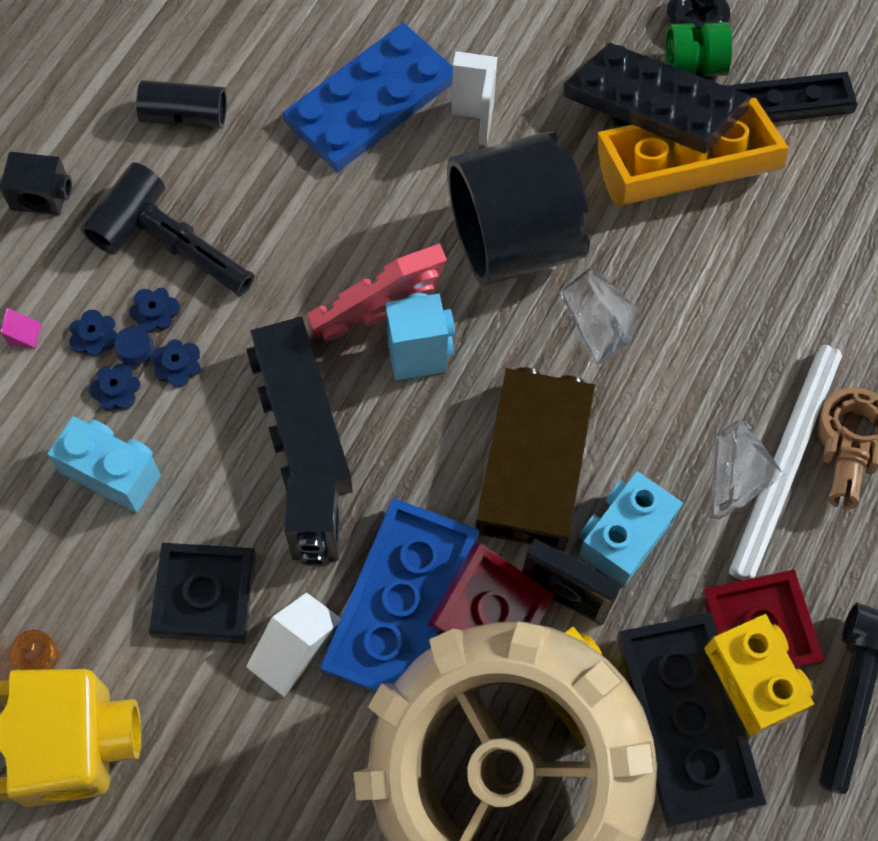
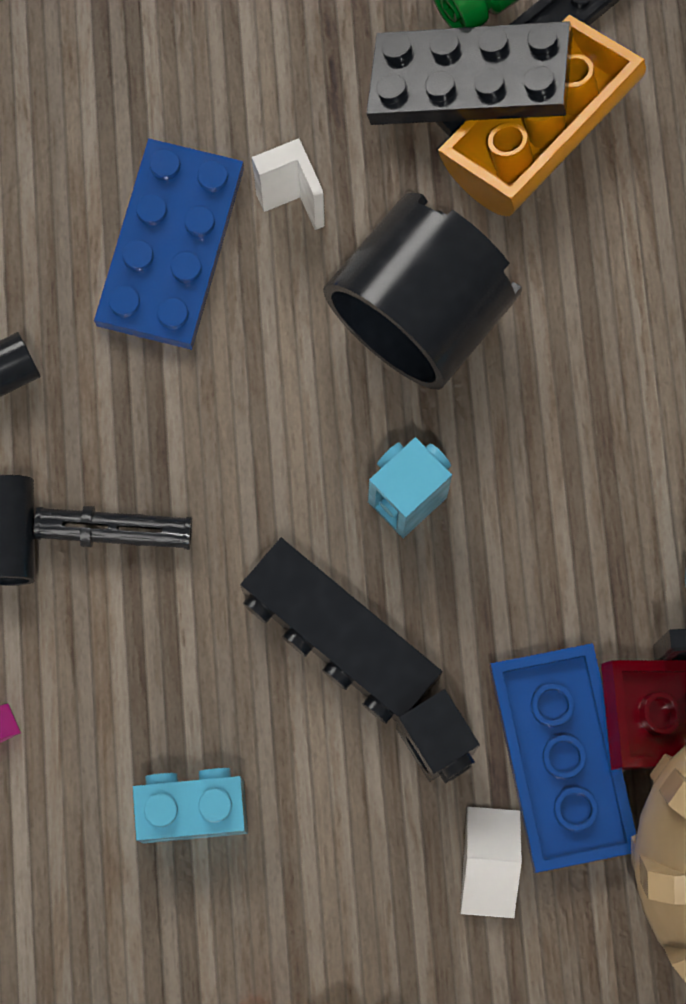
camera: 30 degrees left, 10 degrees up
(134, 347) = (123, 669): dark blue plant -> none
(203, 593) = (370, 870): black tile -> none
(366, 301) = (346, 471): coral plate -> none
(535, 458) = (598, 534): dark brown panel -> none
(600, 314) = (561, 345): clear slope -> none

